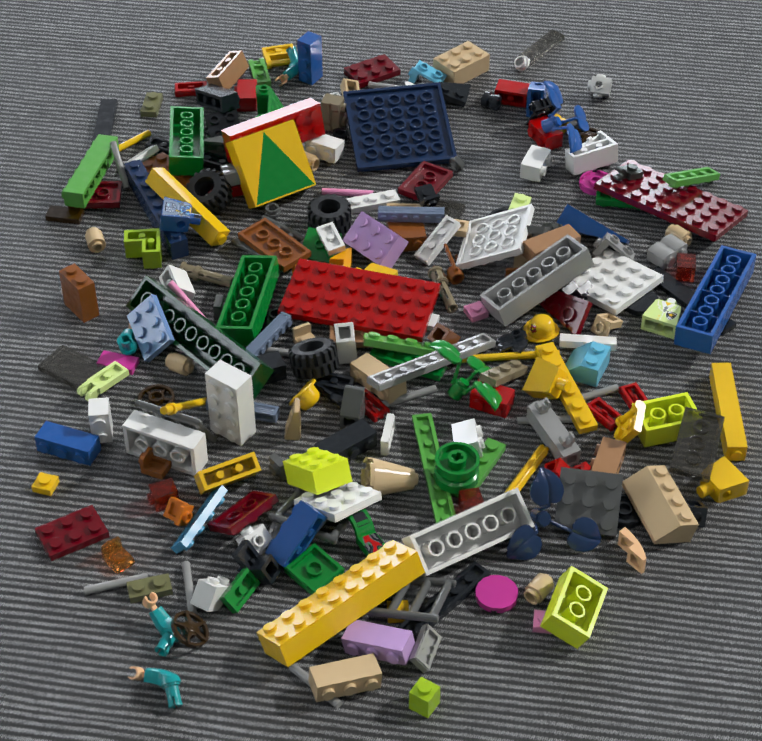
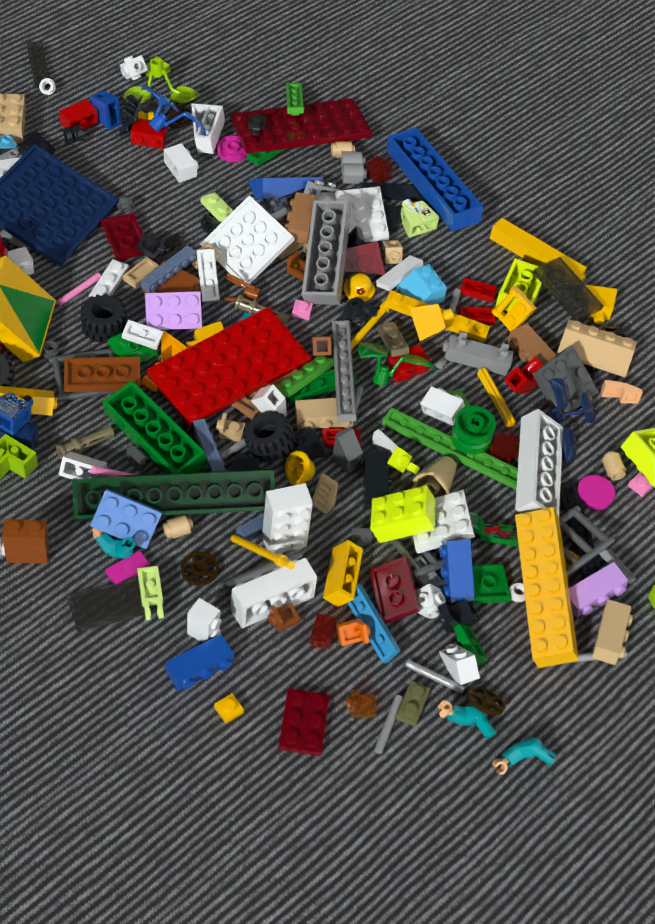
camera: 60 degrees left, 10 degrees up
(377, 444) = (401, 460): none -> neon yellow plate
(608, 95) = (157, 69): none -> lime plant

